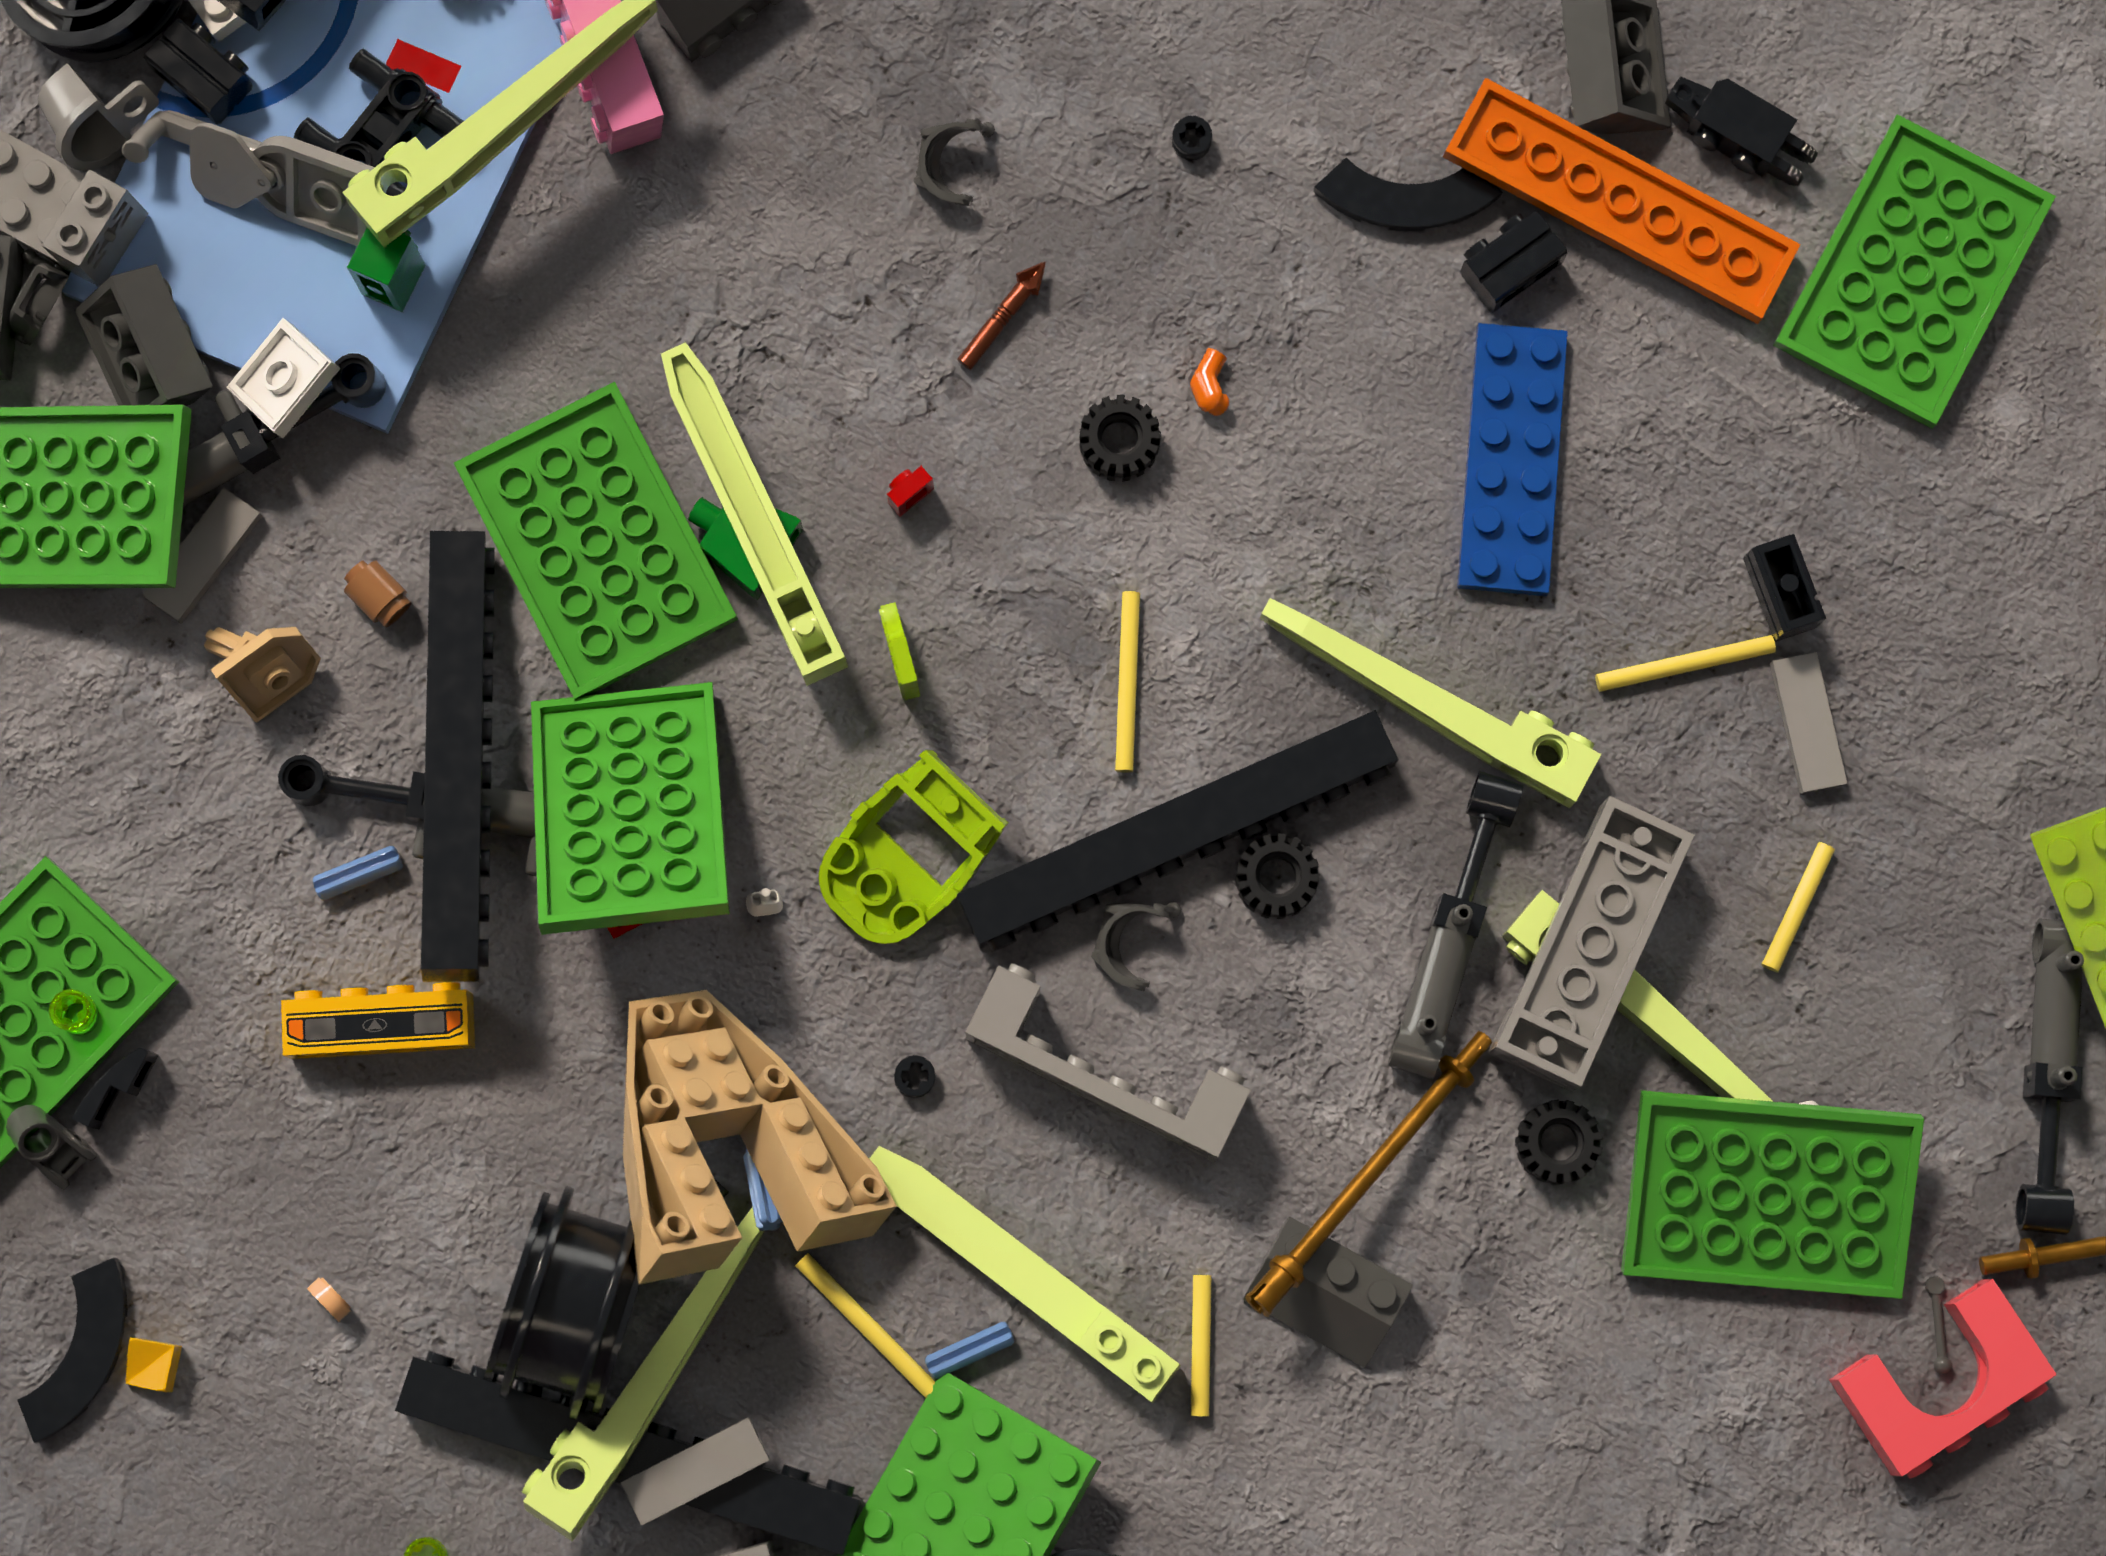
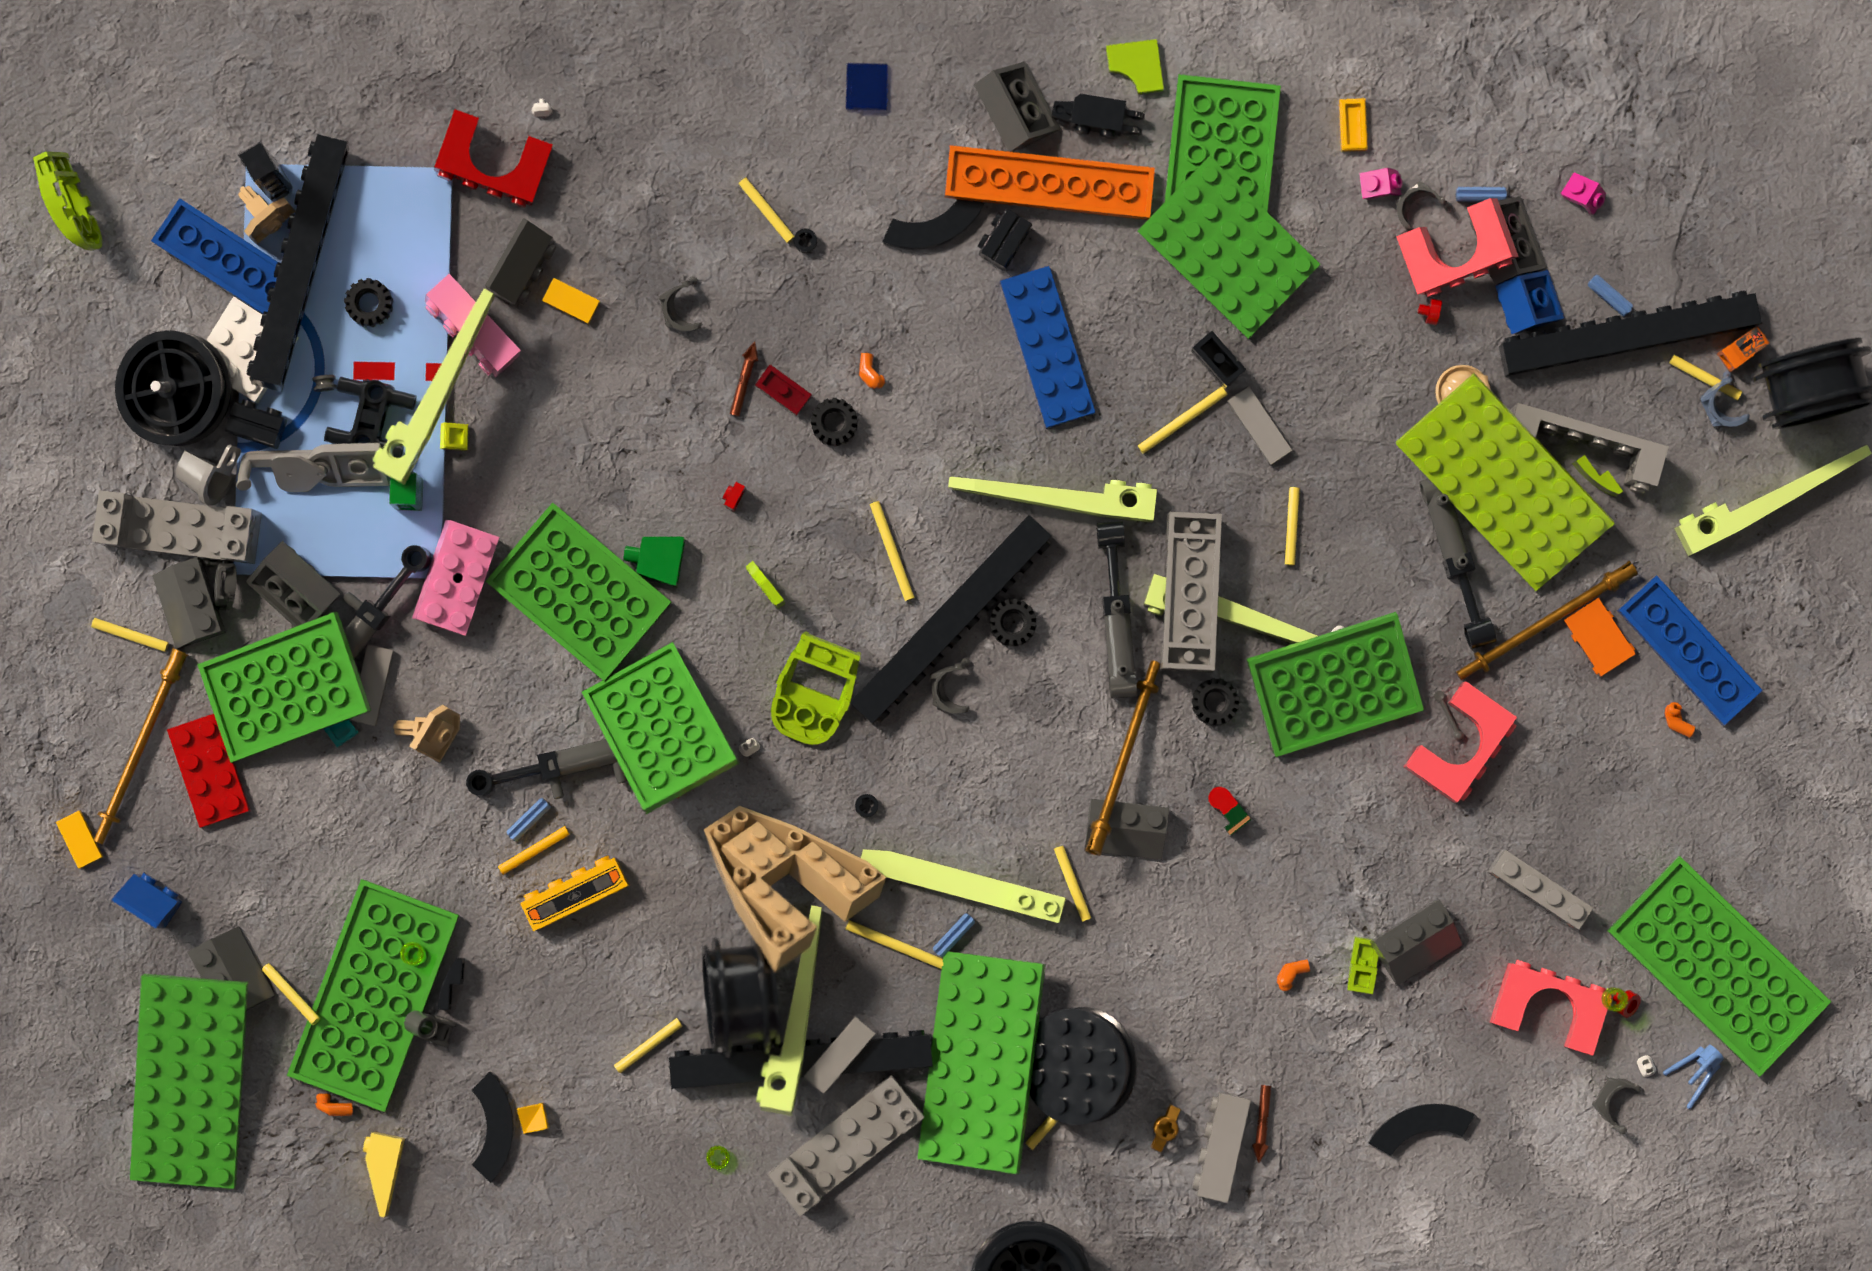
camera: 25 degrees left, 5 degrees up
(121, 608) = (341, 732): none -> teal tile
(283, 378) = (376, 573): white tile -> none
(329, 1298) = (611, 1046): light nougat tile -> none
(335, 49) = (324, 383): none -> dark grey bush
(344, 926) = (534, 850): none -> yellow bar
(376, 593) = (474, 667): medium nougat brick -> none
(379, 471) = (443, 600): none -> bright pink brick
(391, 1323) = (648, 1045): none -> light yellow bar
(455, 757) = (556, 738): black brick -> none
(504, 217) = (454, 436): none -> neon yellow tile
(752, 516) = (657, 545): yellowish green piece -> none
(763, 1207) = (816, 905): medium blue axle -> none
(780, 83) = (571, 301): none -> yellow tile
(998, 1028) = (1028, 763): light grey plate -> none
(1059, 355) = (783, 390): none -> dark red plate
(1149, 67) = (766, 210): none -> light yellow bar
(1507, 1312) = (1222, 800): none -> leg
(1837, 73) = (1139, 63): none -> lime tile
(1871, 416) = (1228, 247): none -> bright green plate

